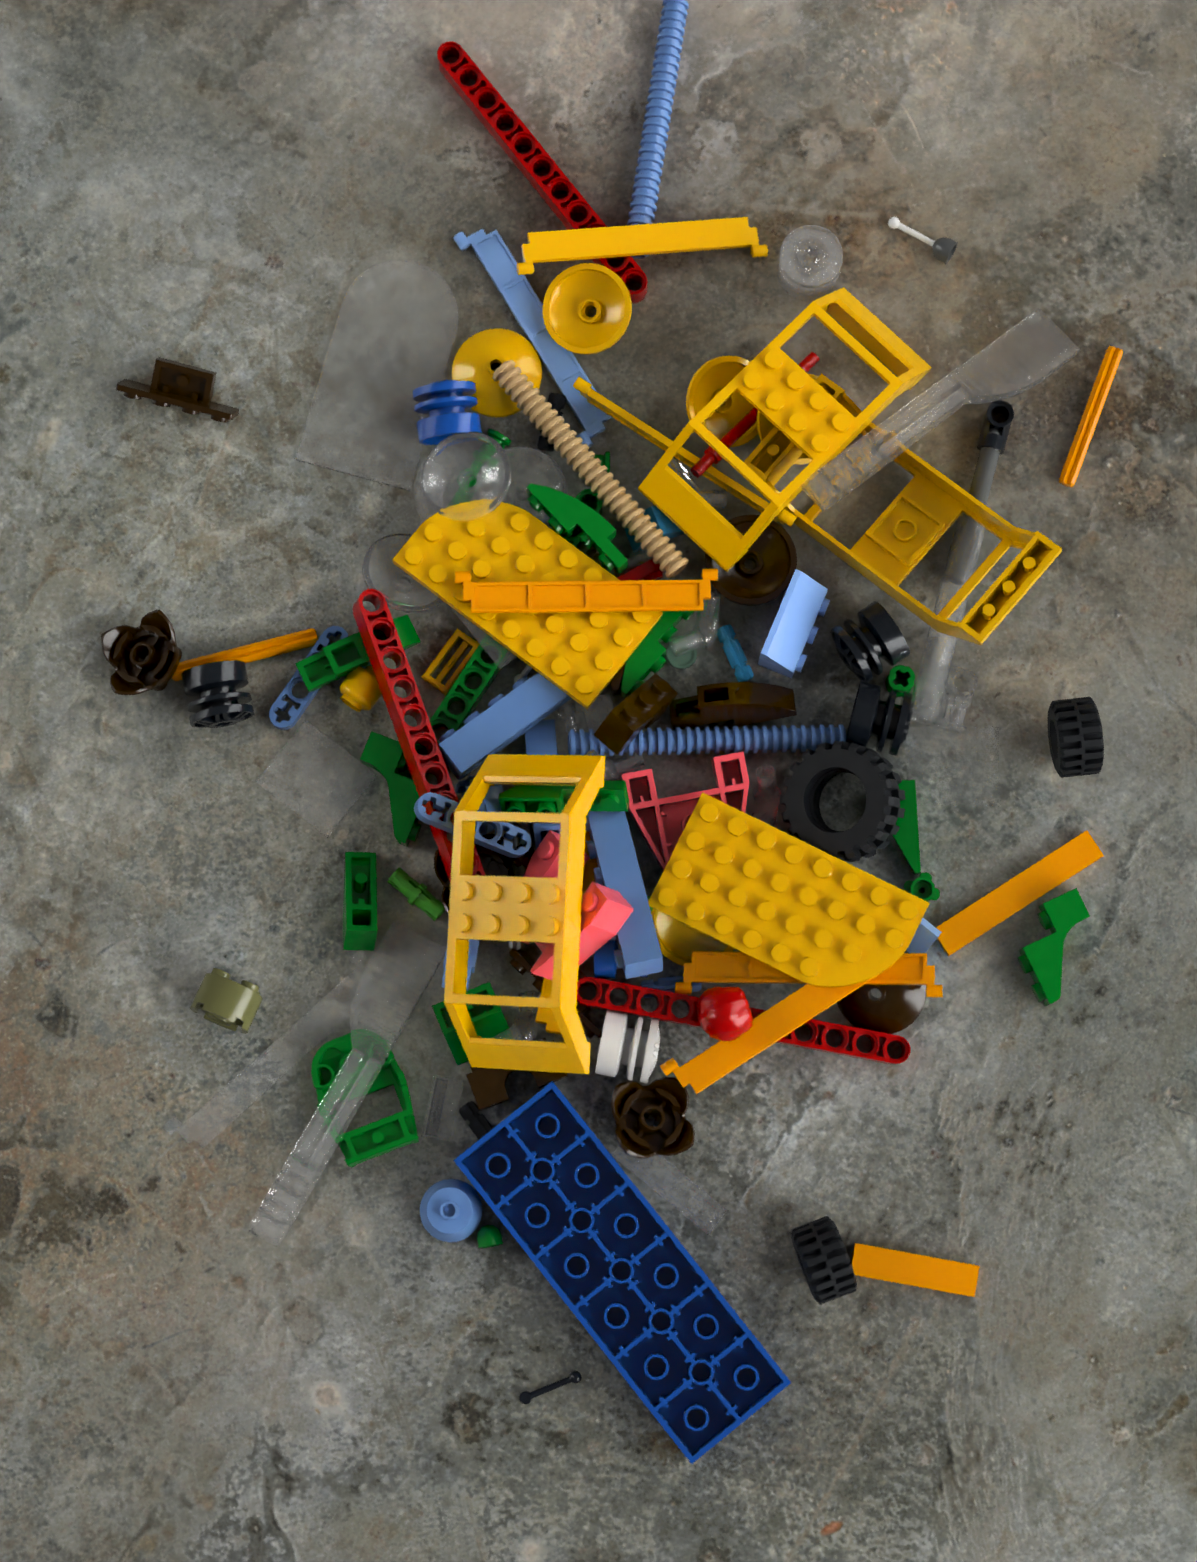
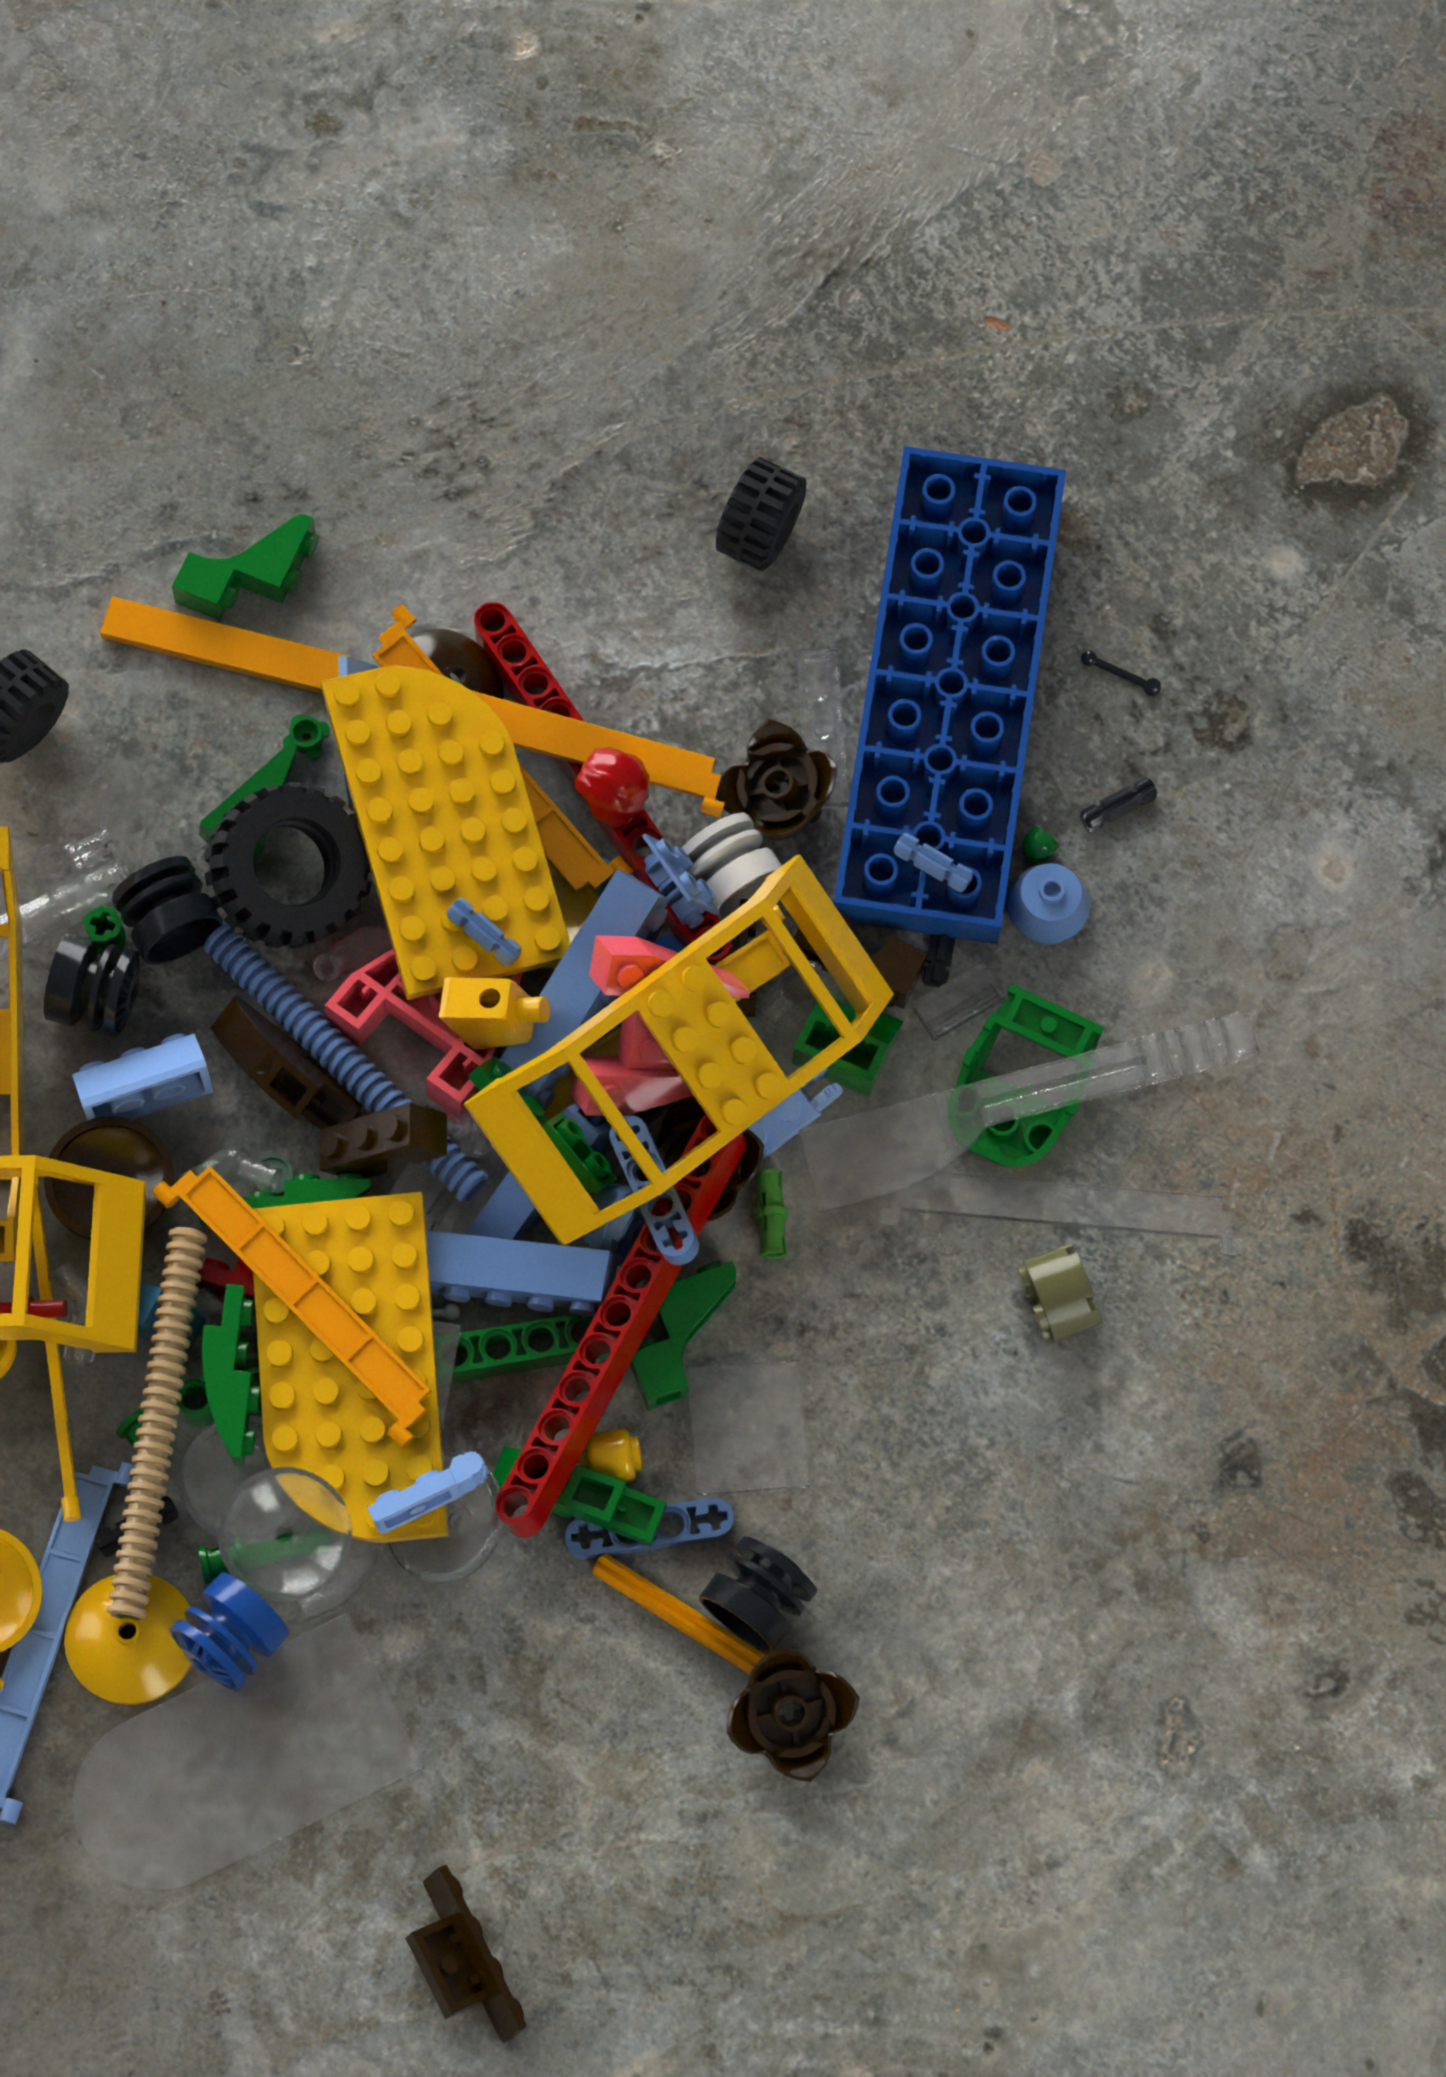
camera: 140 degrees left, 10 degrees down
(360, 901) = (832, 1260): green slope -> none
(416, 563) = (429, 1493): none -> light blue hinge
(436, 683) = (495, 1415): yellow tile -> none
(473, 1307) = (1118, 804): none -> black axle
(522, 1155) = (933, 862): none -> medium blue axle
(635, 1000) = (671, 874): none -> medium blue hinge
(649, 824) = (491, 1011): none -> yellow torso
(698, 861) = (484, 932): none -> medium blue axle
(735, 653) = (224, 1118): dark azure axle -> none
(915, 1269) = (685, 439): light orange tile -> none

